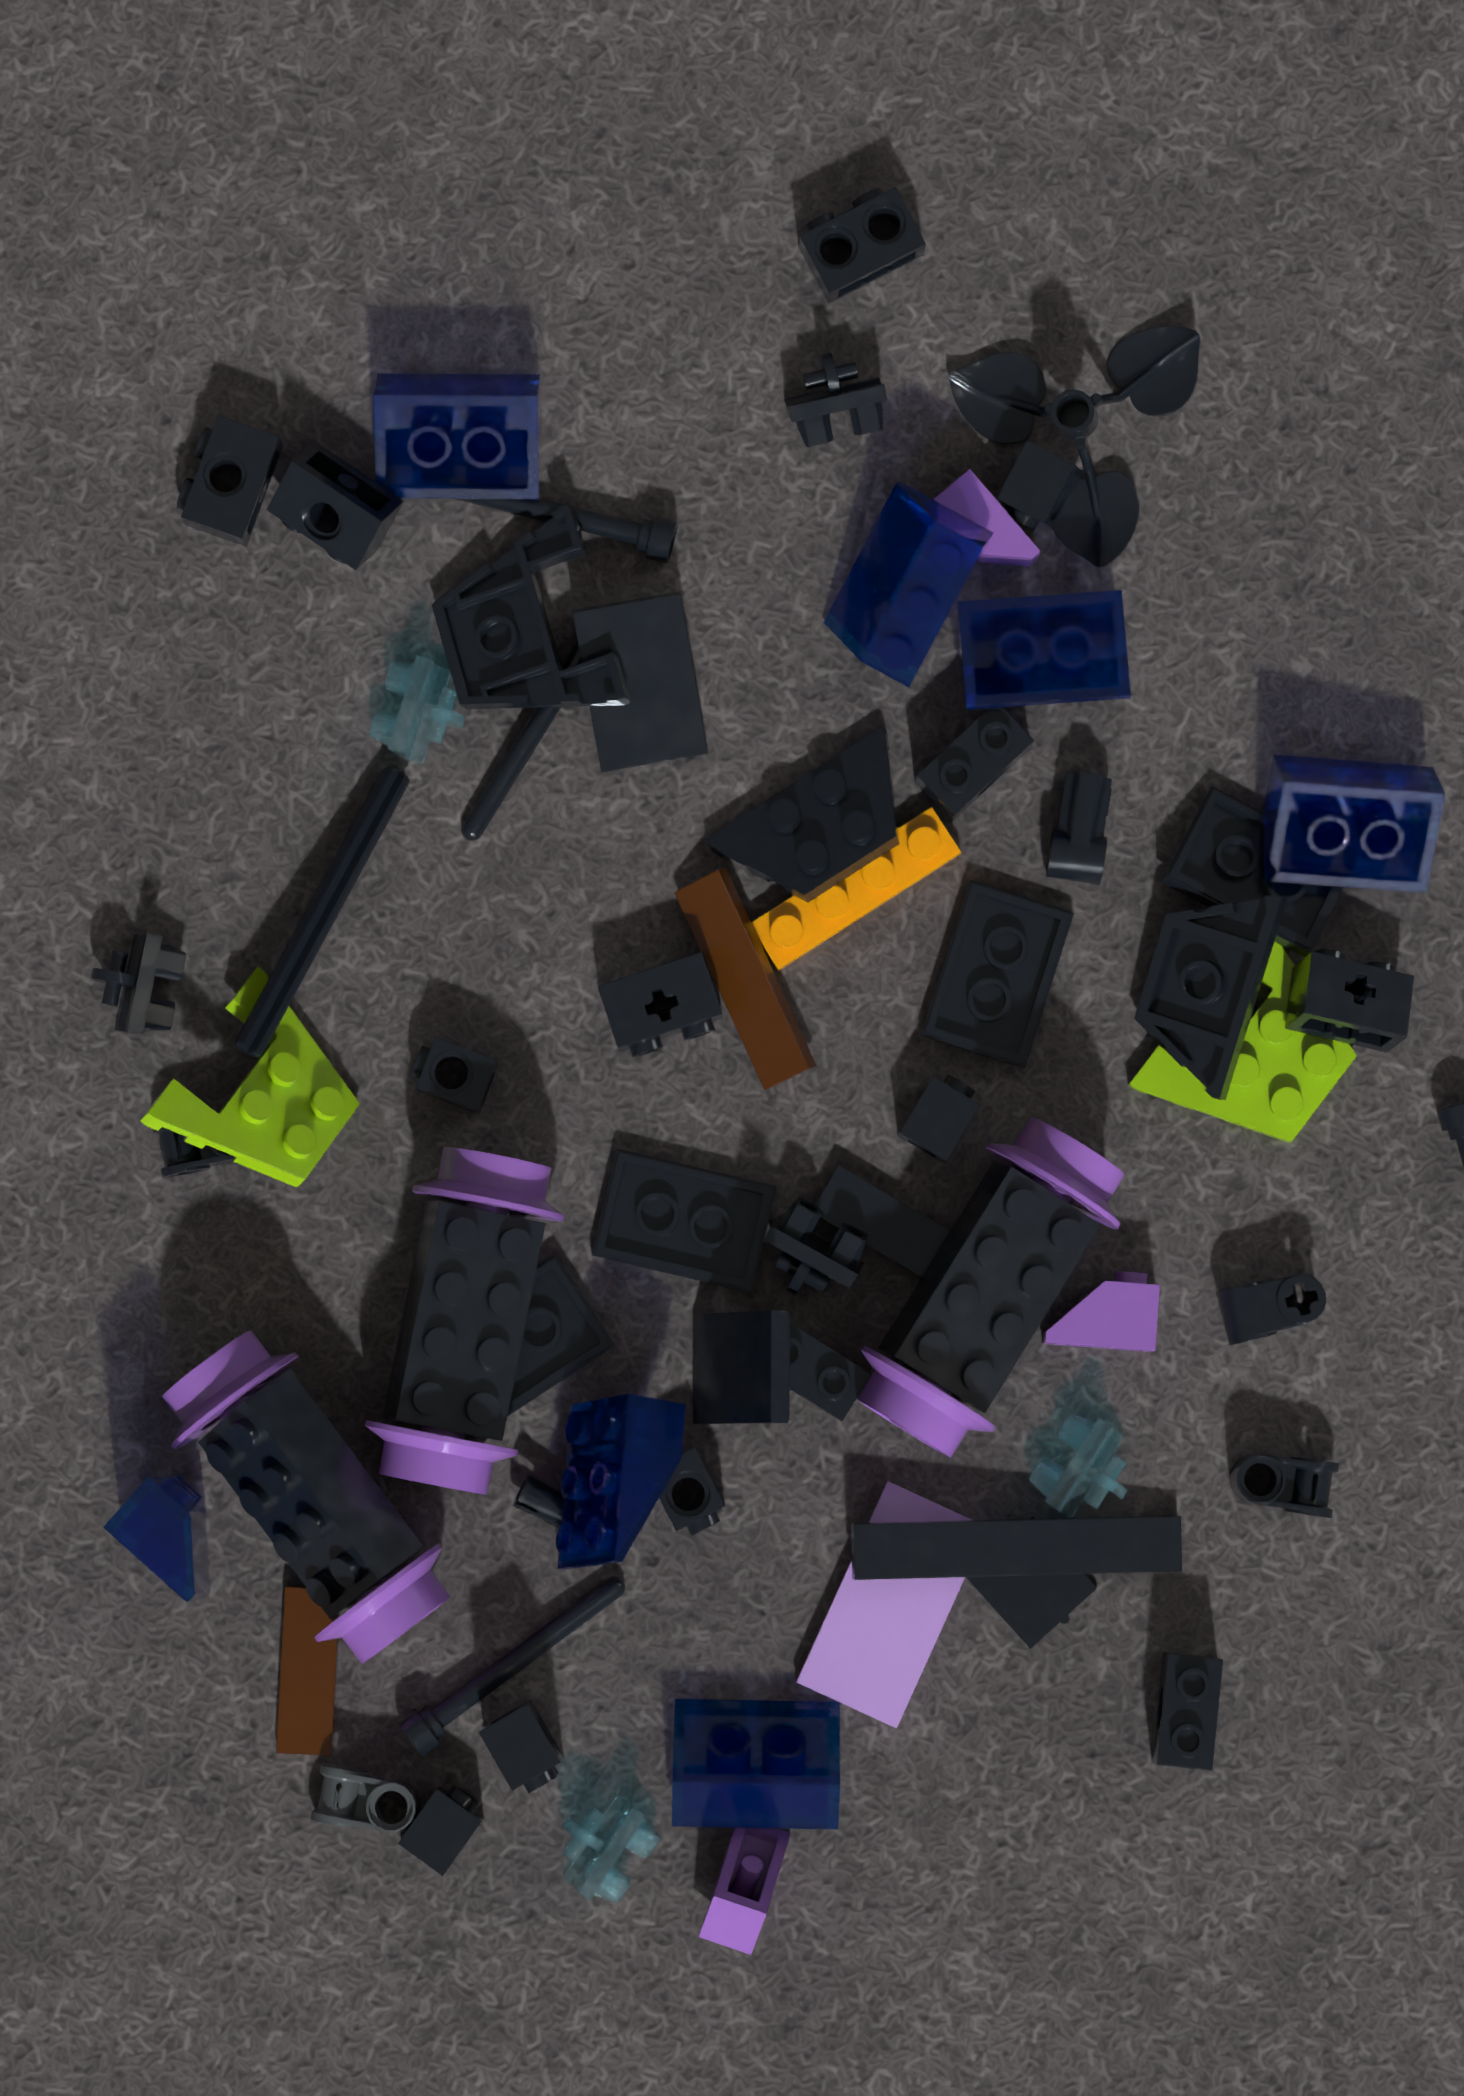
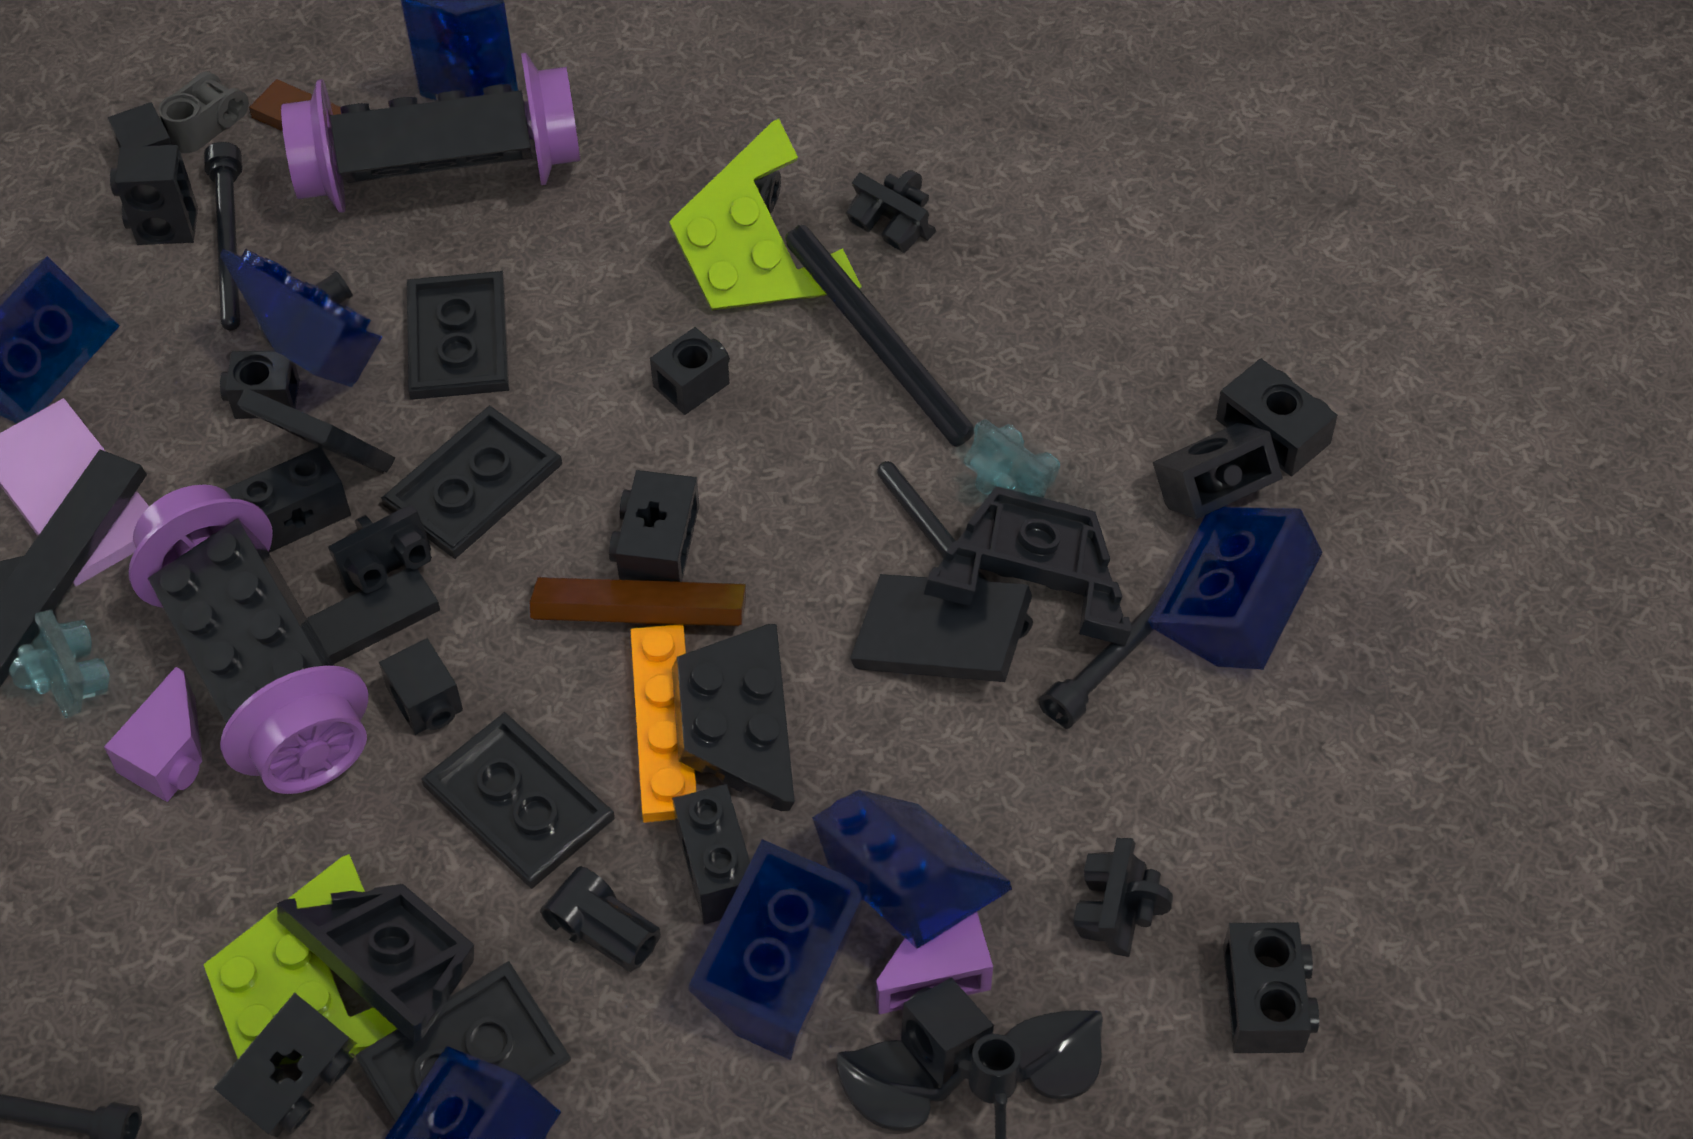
camera: 120 degrees right, 30 degrees down
(464, 1319) = (491, 276): black brick -> none
(600, 1843) = (50, 226): clear light blue hips -> none
(1261, 1308) = (74, 875): black piece -> none

